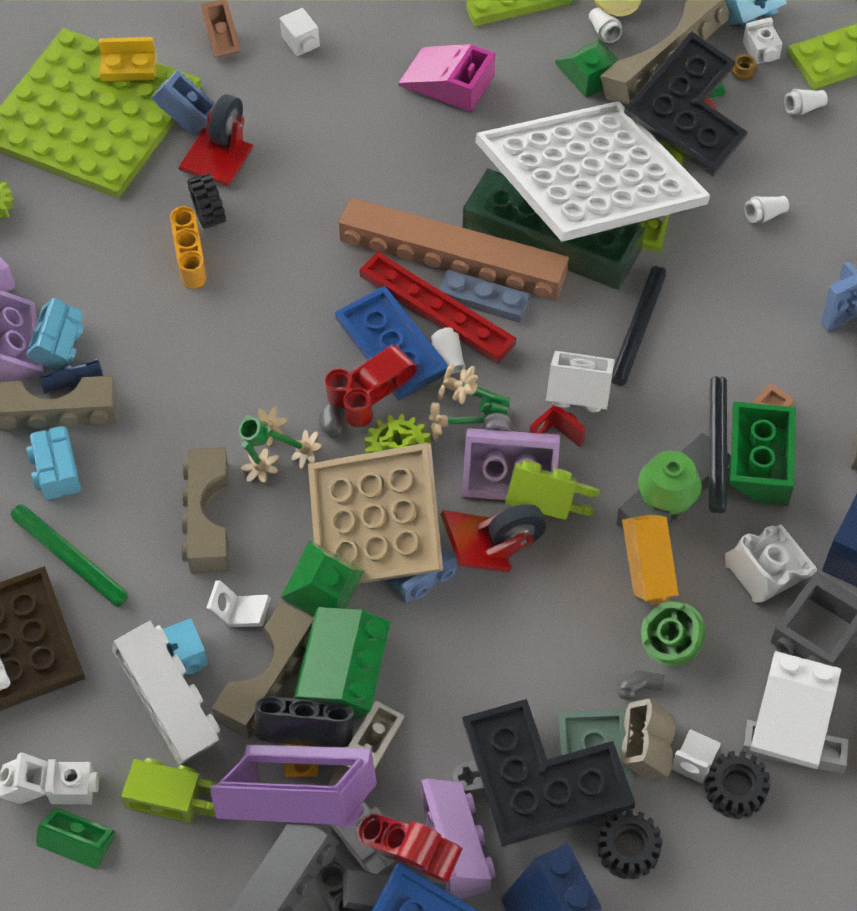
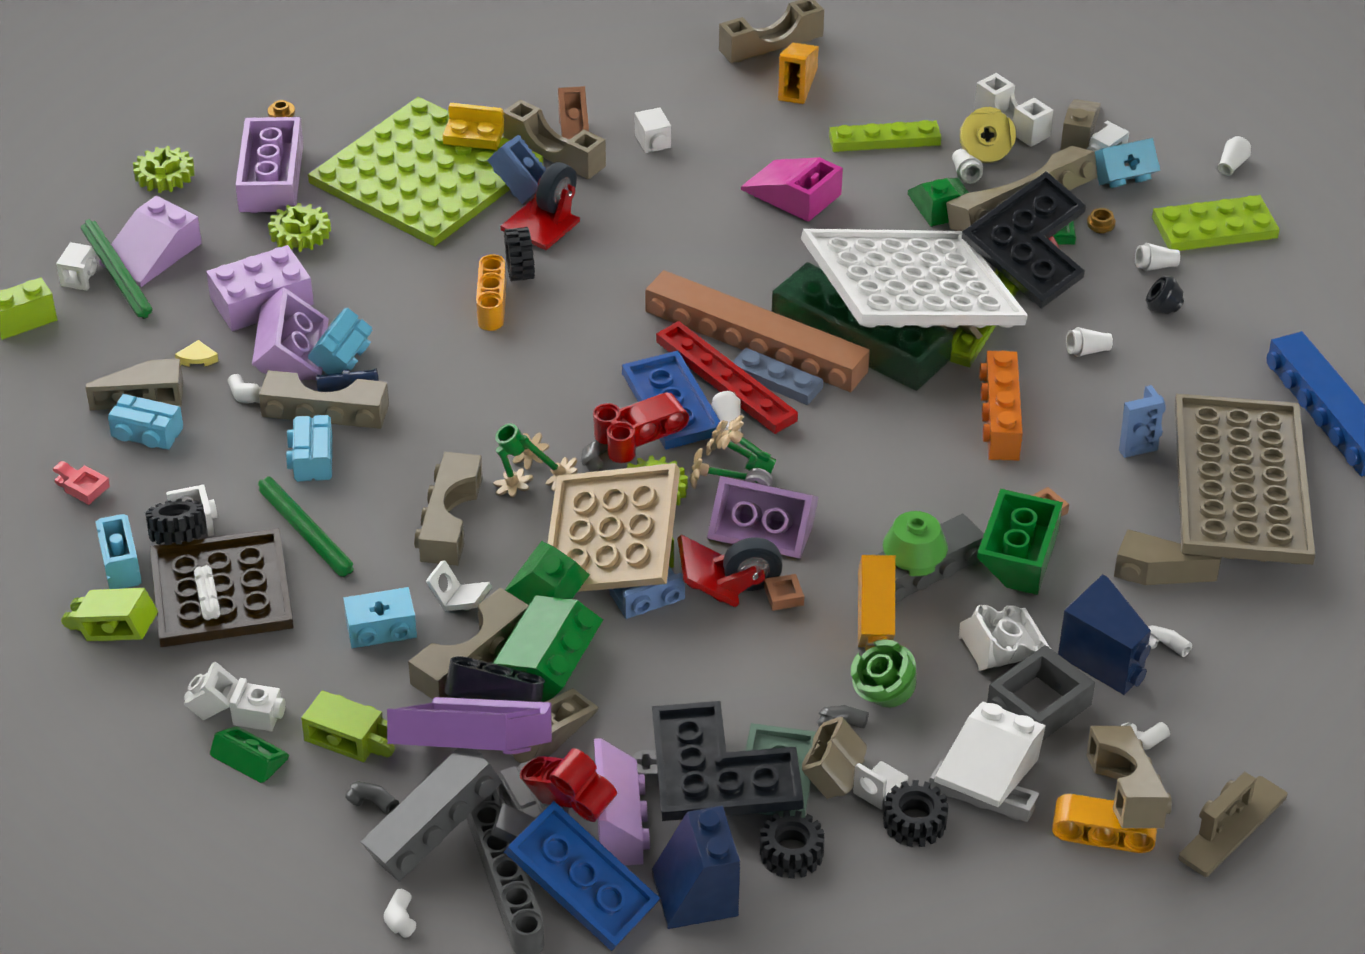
camera: 10 degrees right, 15 degrees down
(165, 692) = (366, 634): white brick -> none
(181, 51) = (583, 152): none -> dark tan arch
(209, 863) = (373, 792): none -> dark grey arm
(548, 490) = (794, 539): lime hinge -> none
(551, 549) = (784, 592): none -> nougat plate
(563, 421) = (824, 487): red bracket -> none
(579, 381) = (850, 451): white brick -> none
(638, 325) = (927, 422): black axle -> none
(705, 296) = (1001, 405): none -> orange brick
(718, 445) = (974, 523): black axle -> none
(762, 41) = (1126, 200): white brick -> none
(824, 144) = (1165, 296): none -> black cone

